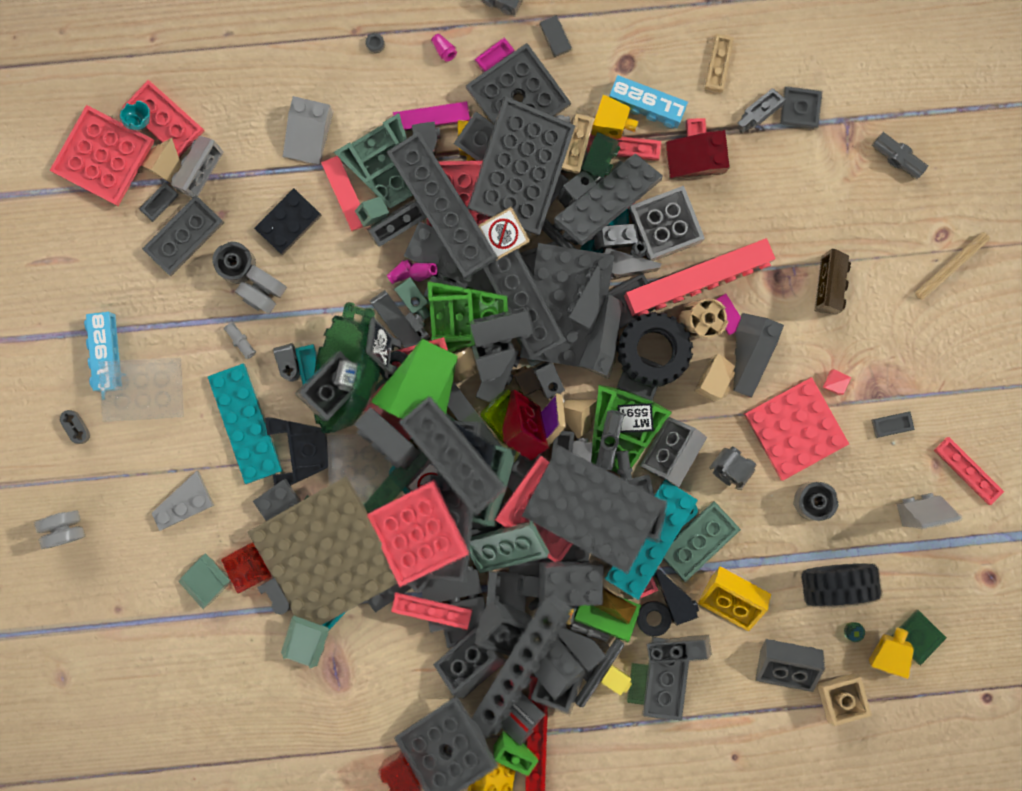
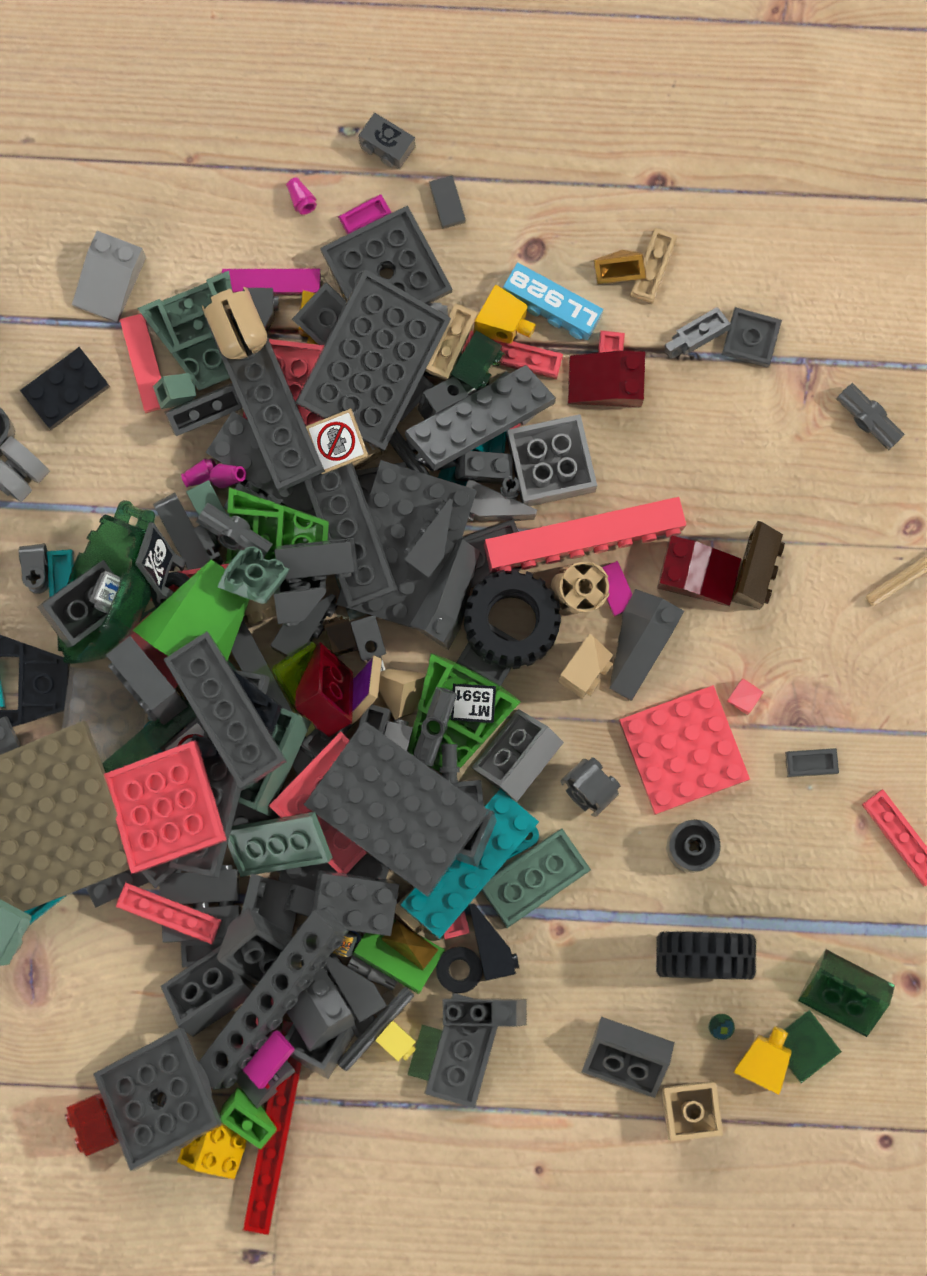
camera: 10 degrees right, 5 degrees down
(375, 43) = (213, 178): dark grey tile -> none
(403, 158) = (224, 328): none -> tan cylinder
(436, 315) = (231, 531): none -> dark grey piece
(457, 347) = (253, 576): none -> sand green slope
(524, 710) = (268, 1059): none -> dark pink tile
(695, 67) = (620, 267): none -> pearl gold slope
(735, 599) = (568, 959): yellow slope -> none
(787, 292) = (698, 571): none -> dark red slope
(926, 511) = (834, 879): light grey slope -> none
(945, 593) = (847, 993): none -> clear green slope

